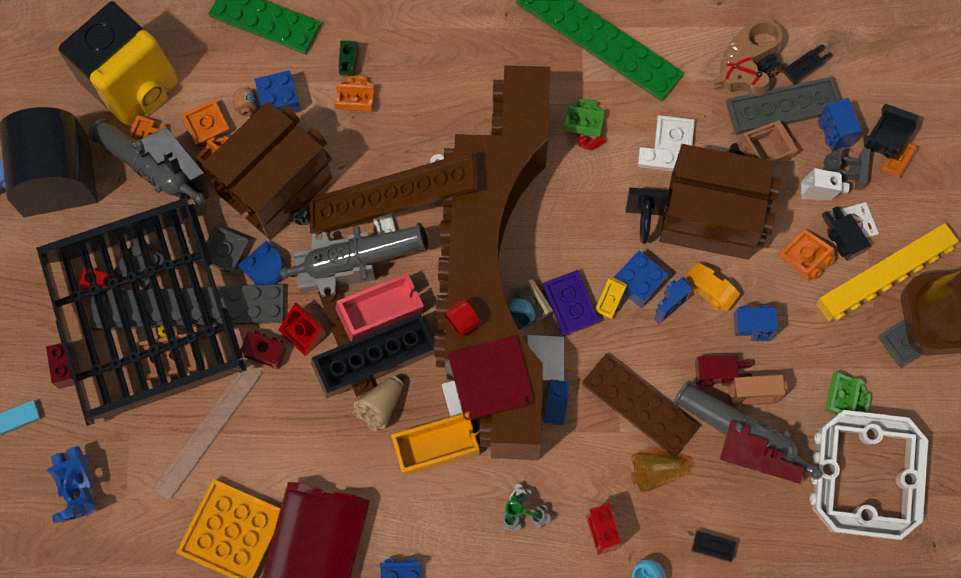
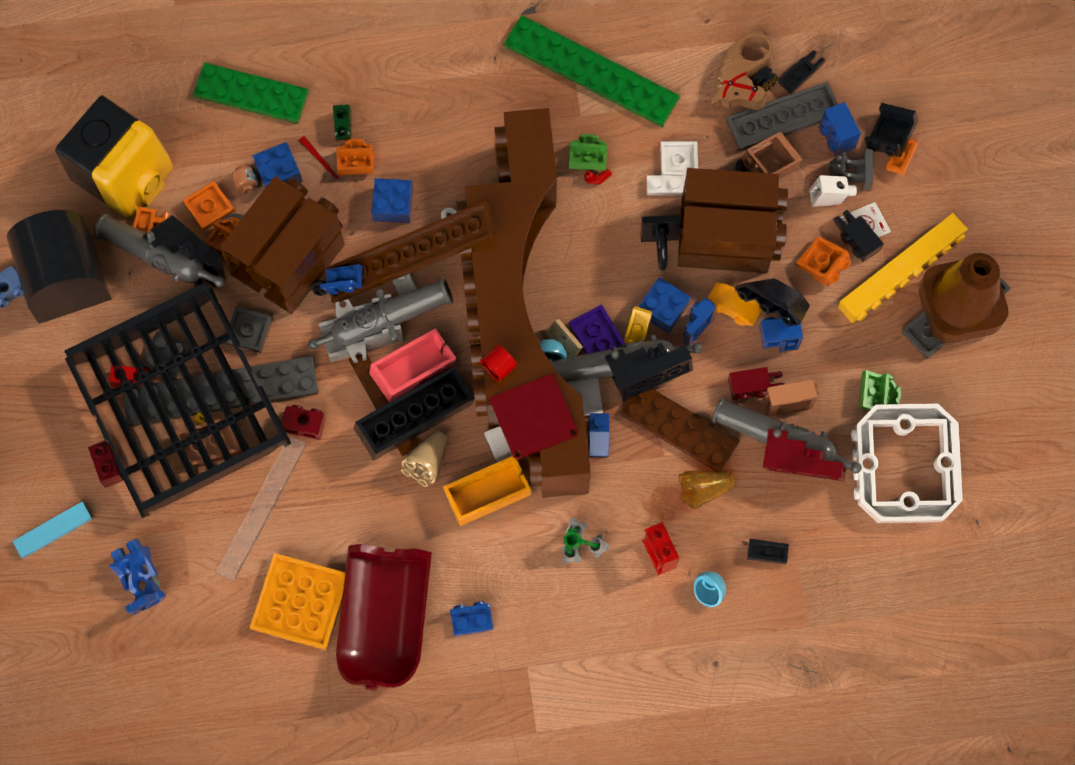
camera: 10 degrees left, 0 degrees up
(263, 265) = (289, 340): blue slope -> none
(301, 329) = (338, 397): red slope -> none
(312, 77) = (313, 151): none -> red sticker
(323, 211) = (343, 279): none -> blue bracket
(384, 140) = (392, 200): none -> blue brick
(600, 337) = (633, 365): none -> black piece
(755, 287) = (777, 298): none -> black brick

